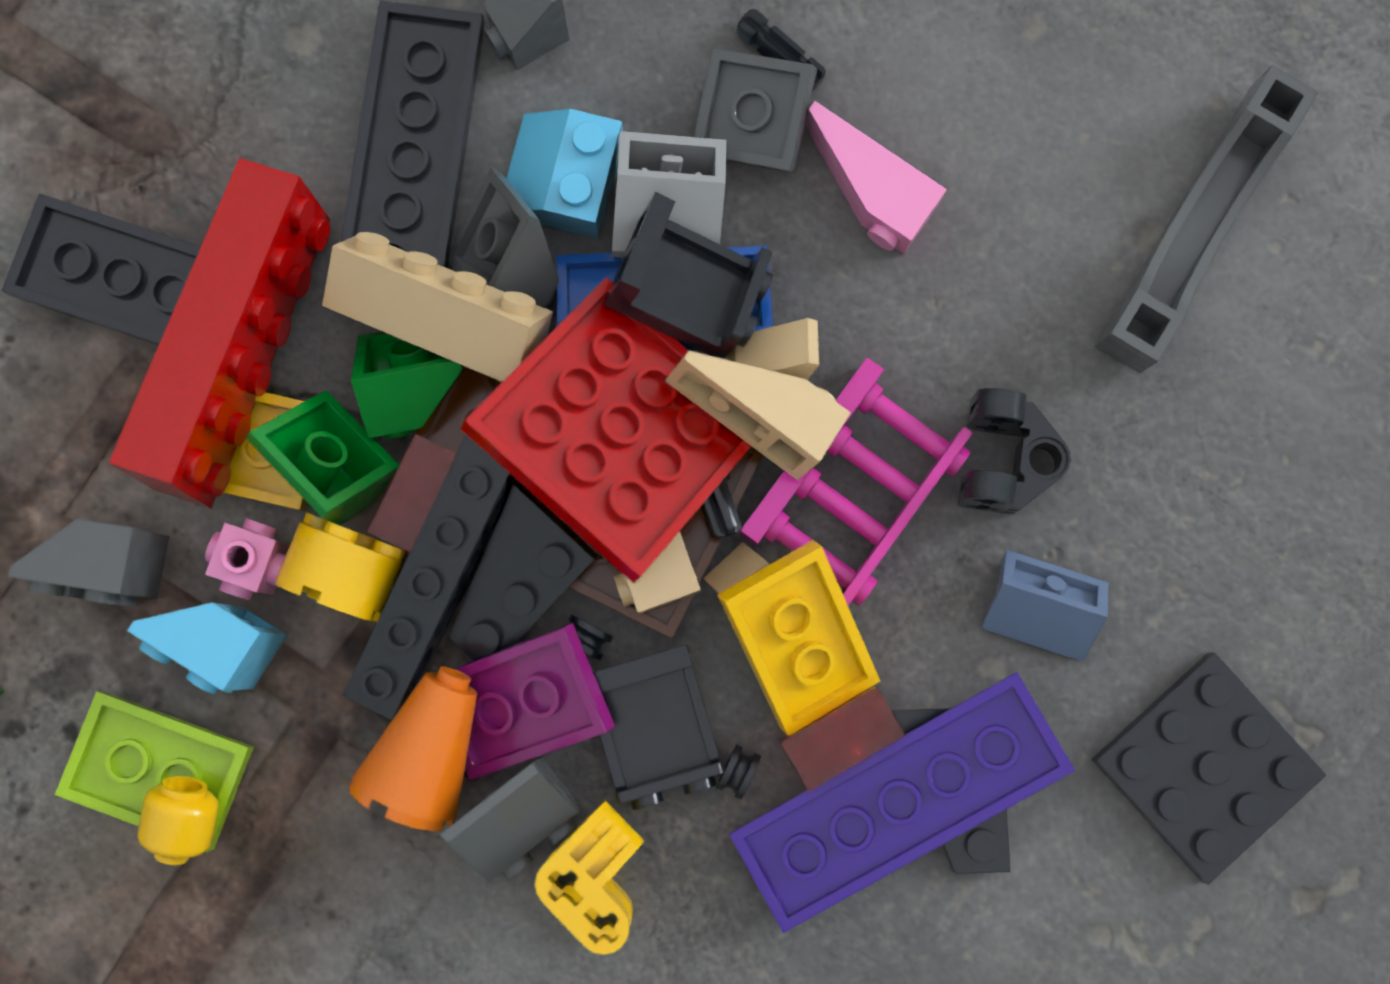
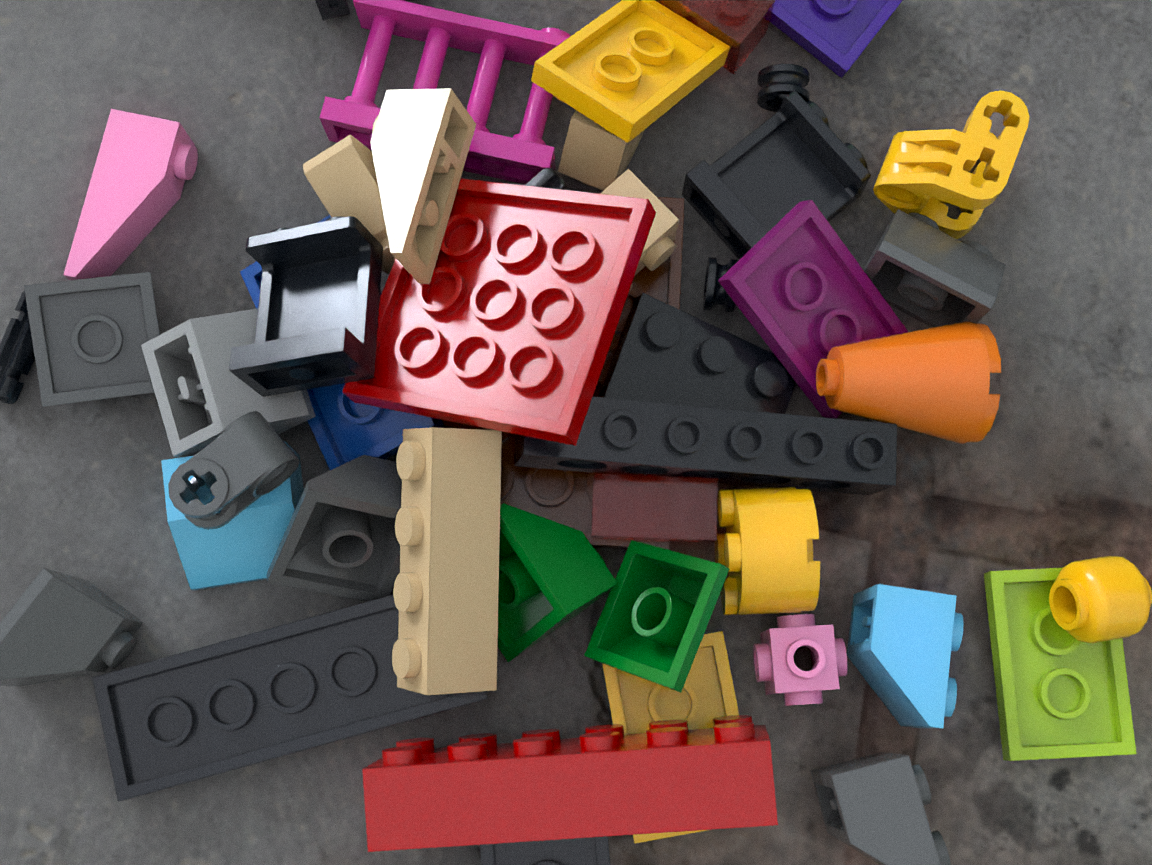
camera: 110 degrees left, 5 degrees down
(576, 172) = (236, 467): none -> dark grey piece

